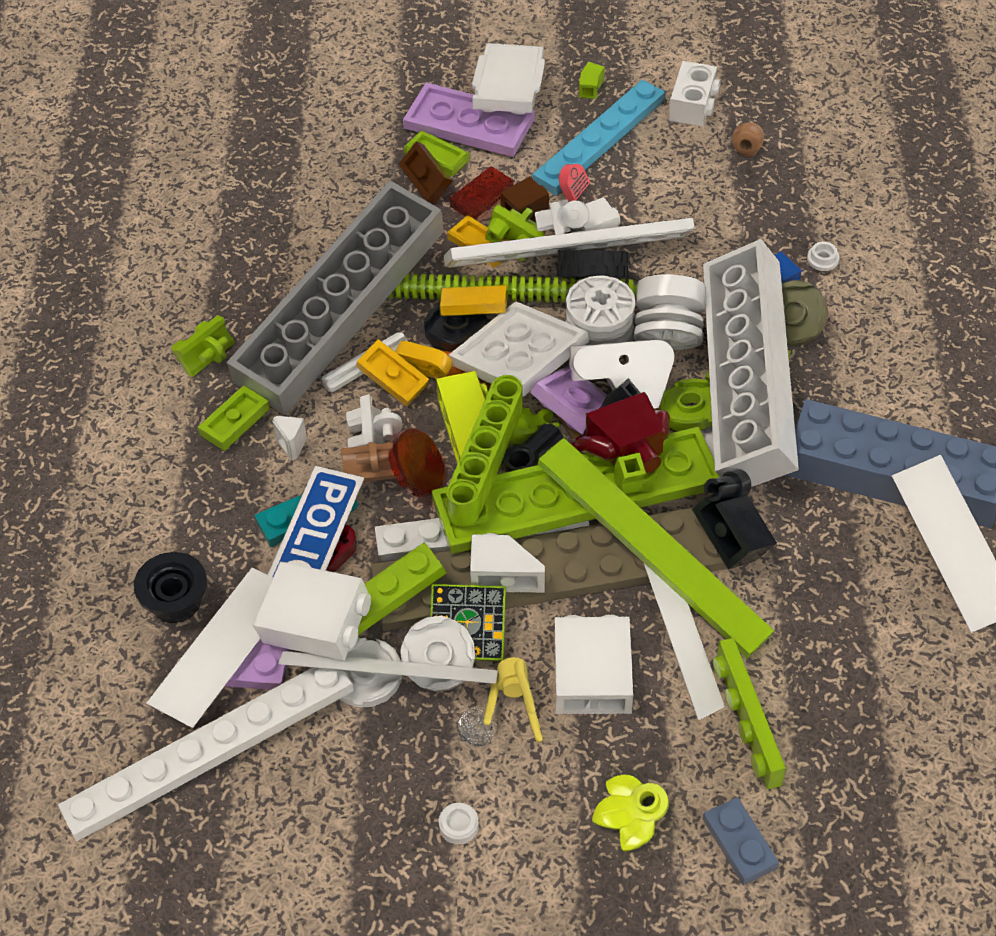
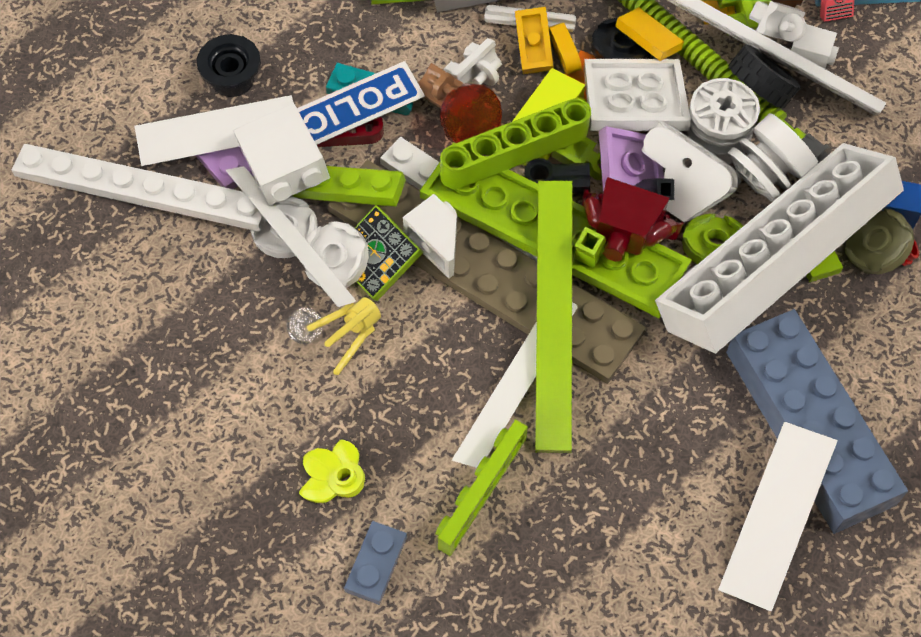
camera: 45 degrees right, 10 degrees up
(290, 435) = (419, 28): white slope -> none
(458, 823) = (223, 375): white tile -> none
(593, 665) = (422, 355): white brick -> none
(733, 520) = (631, 347): black hinge -> none

